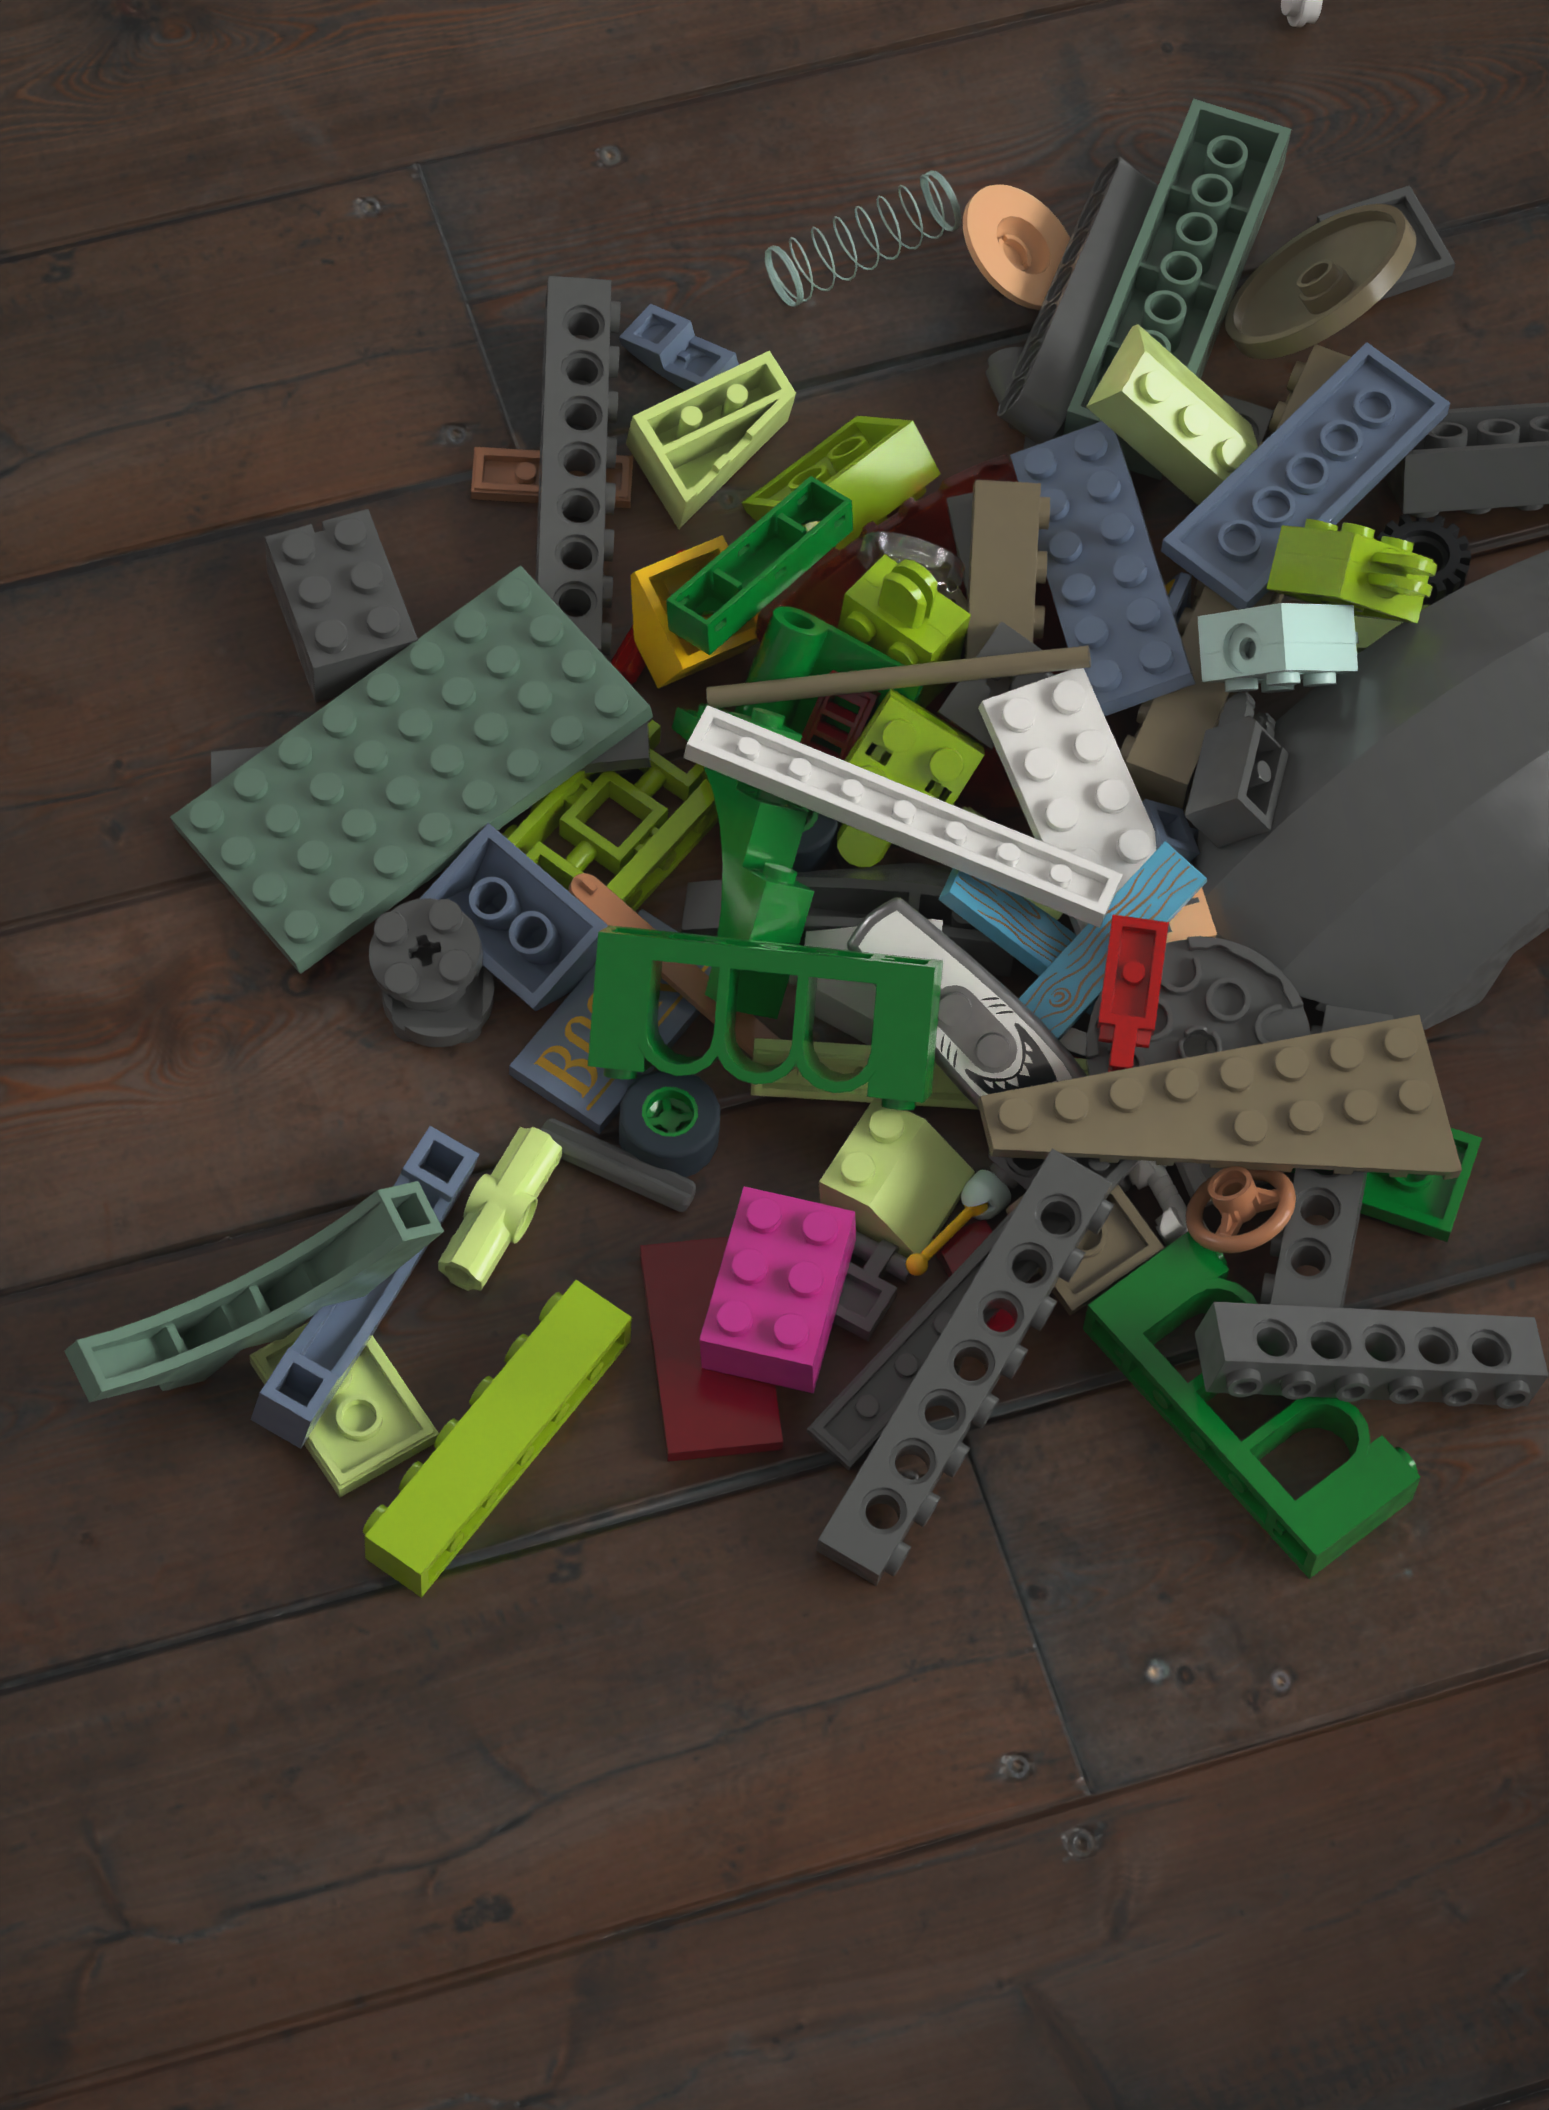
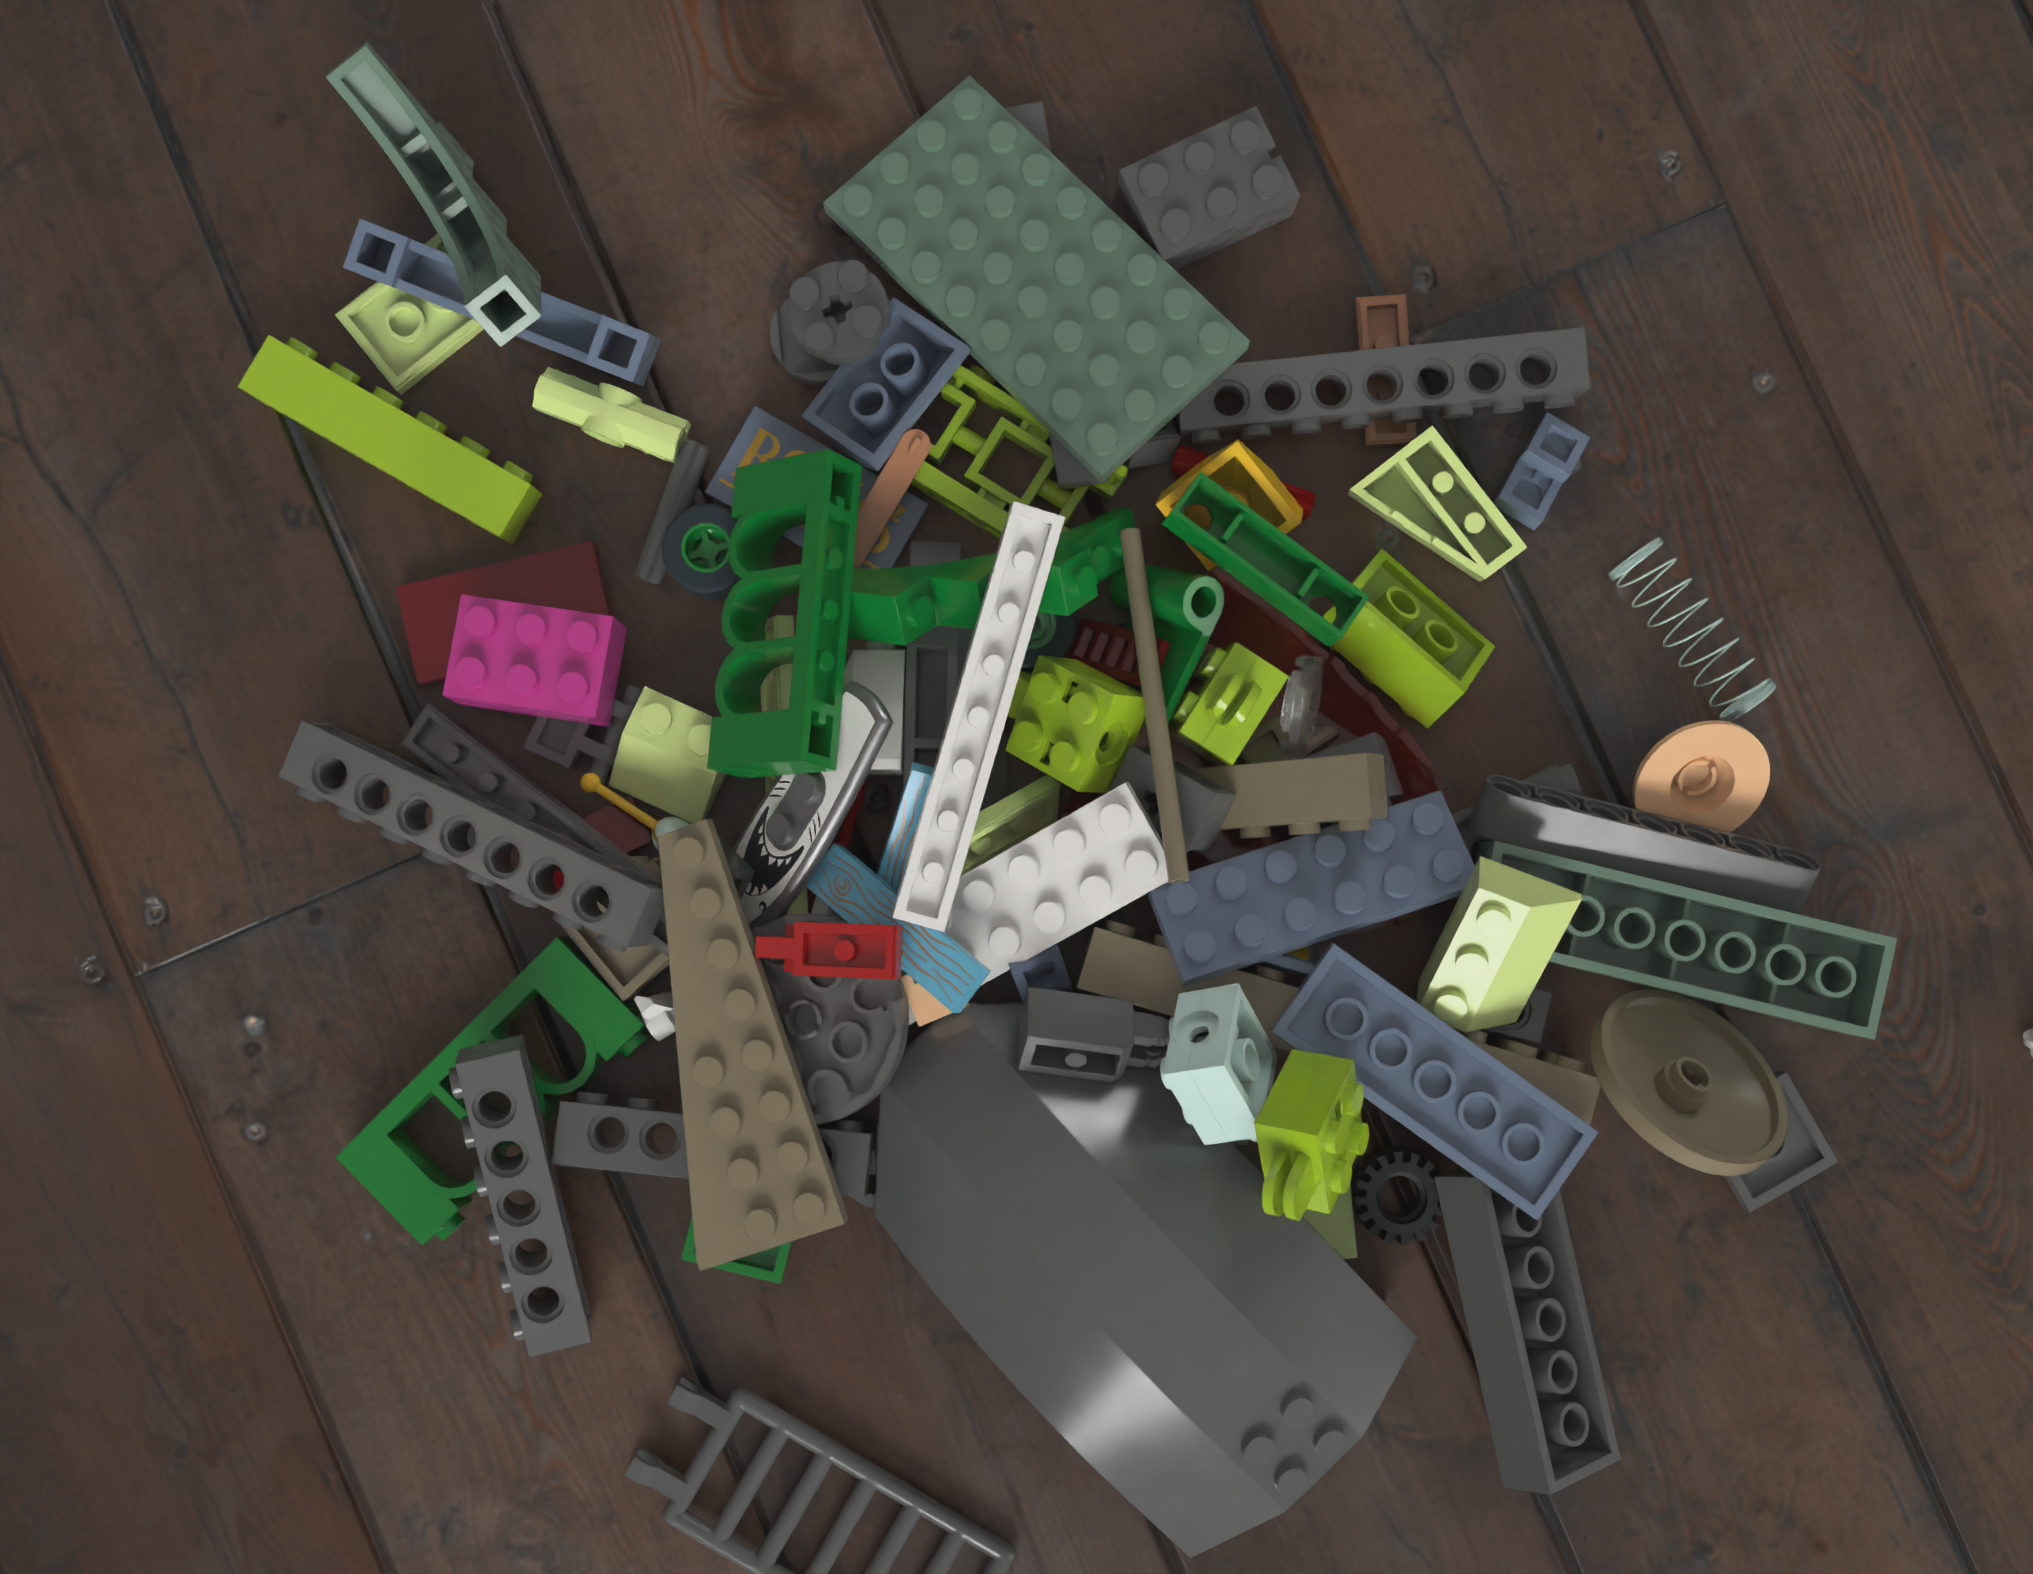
camera: 90 degrees right, 25 degrees up
(1238, 1202) = (654, 1048): nougat piece -> none

